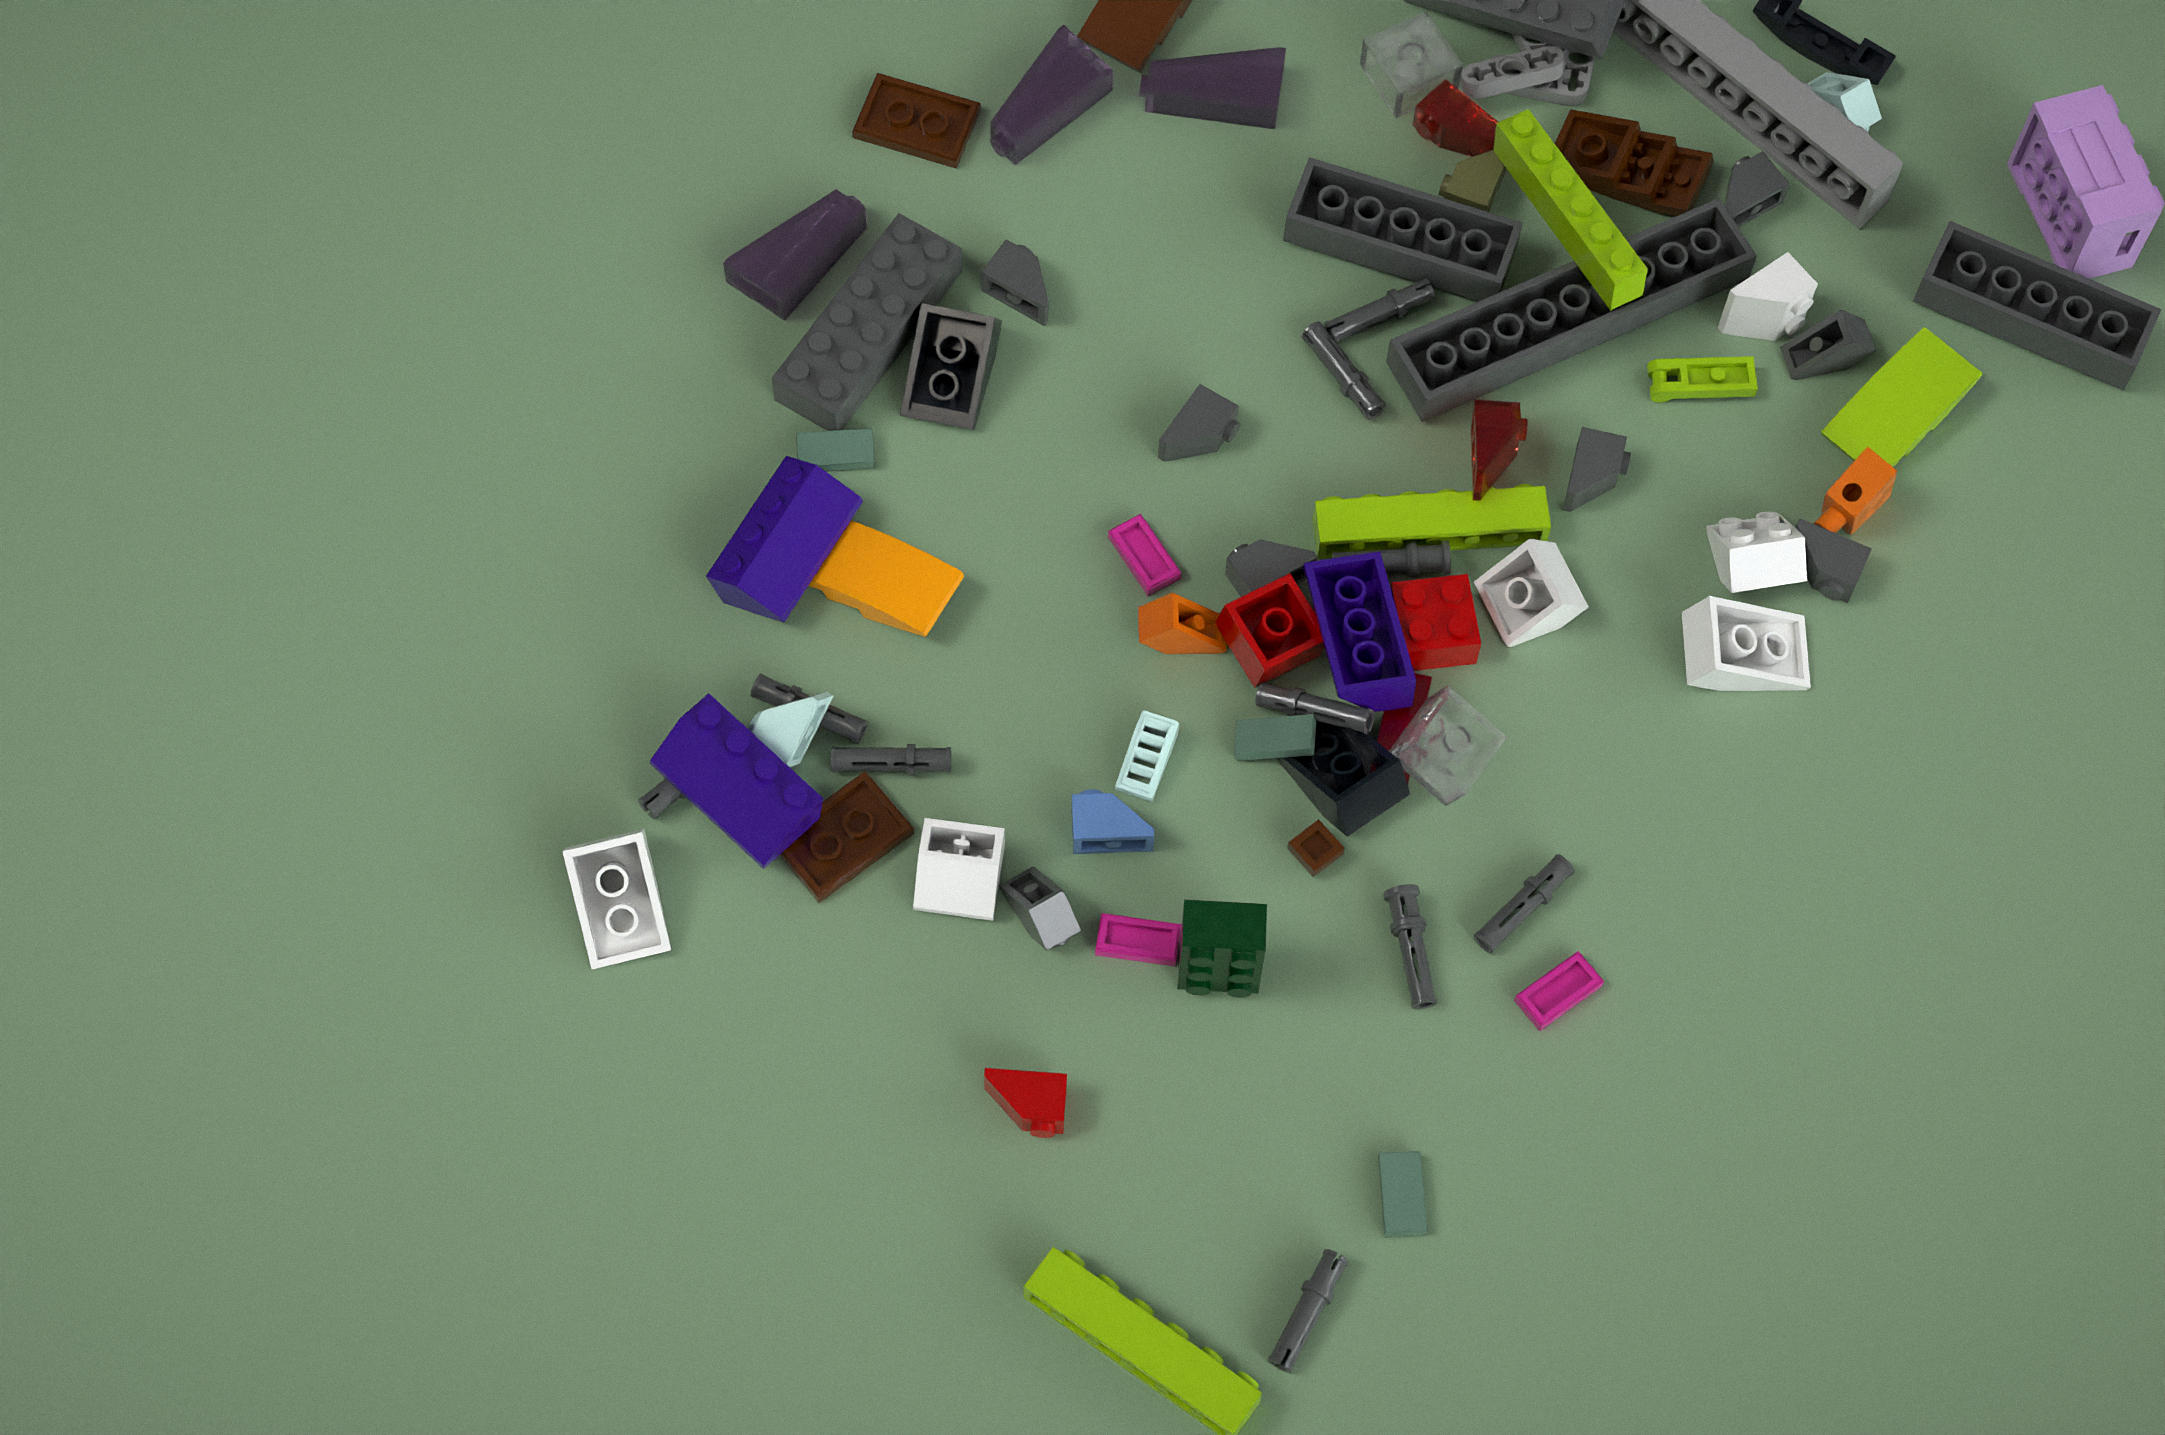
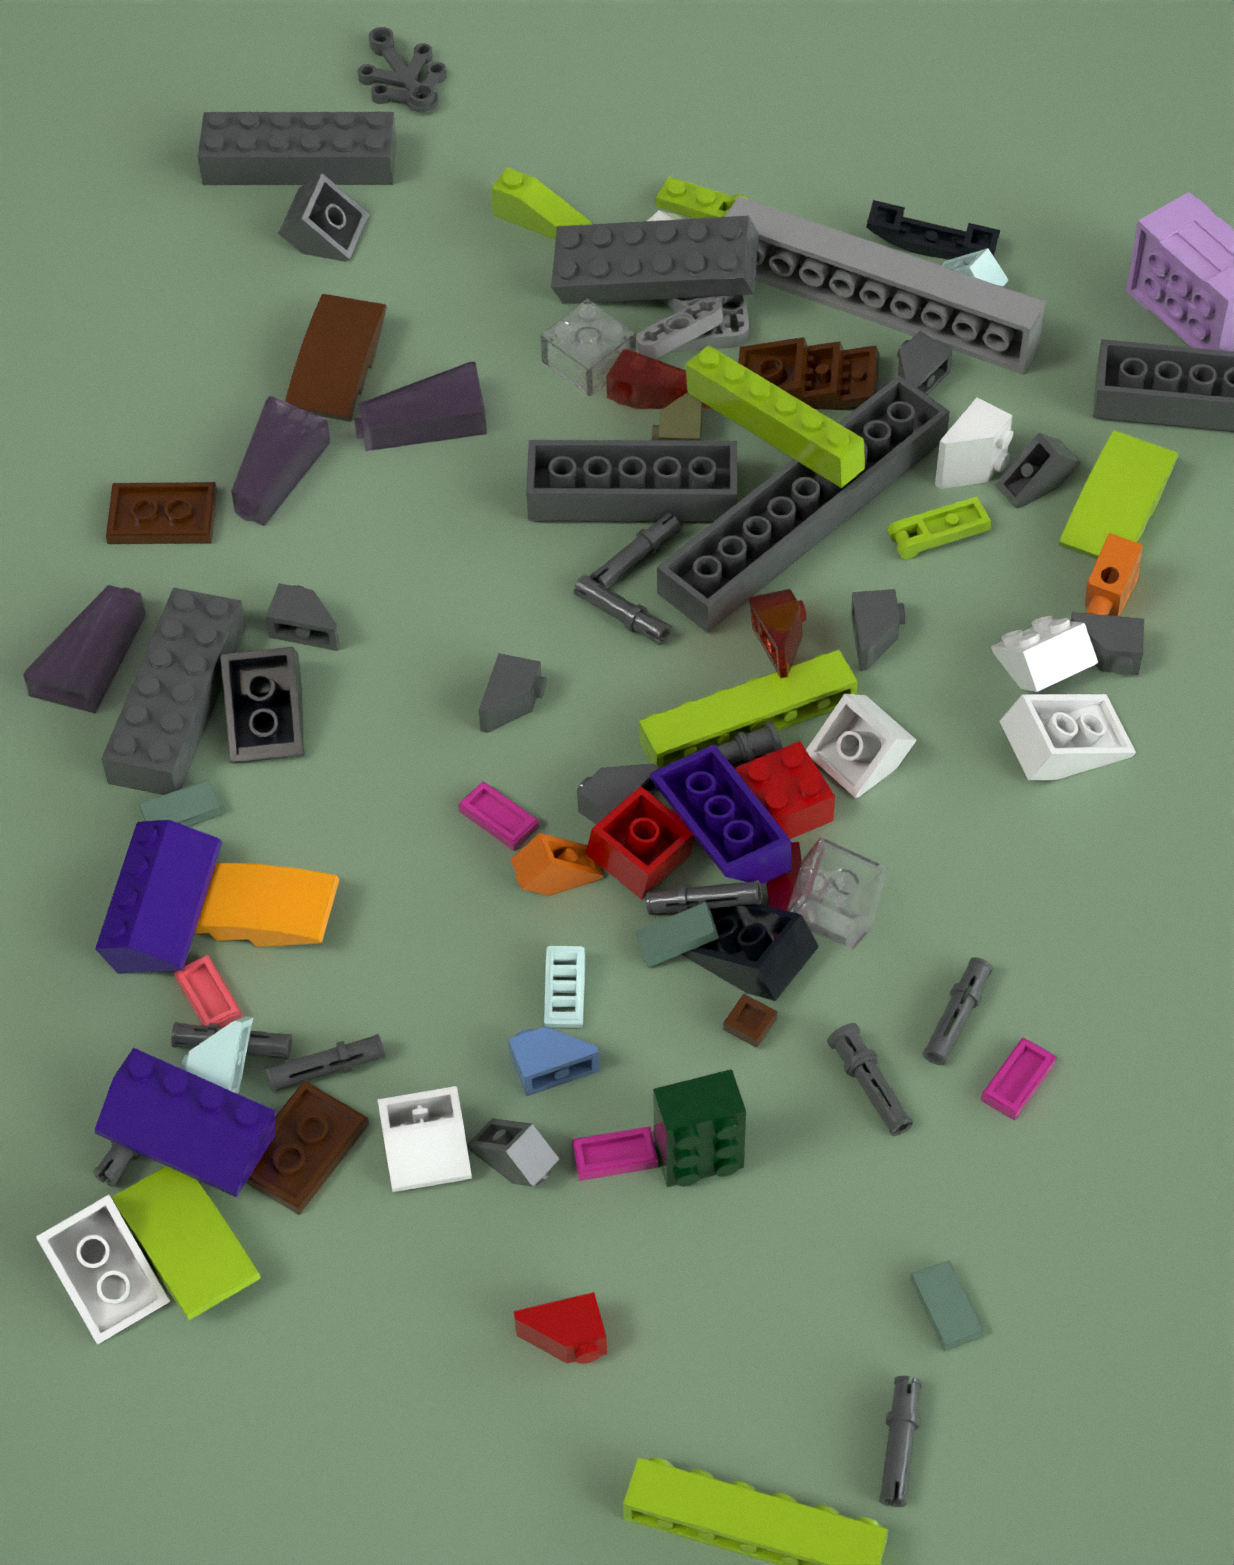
camera: 15 degrees left, 10 degrees down
(702, 895) = (185, 1240): none -> lime slope
(802, 652) = (207, 993): none -> coral tile

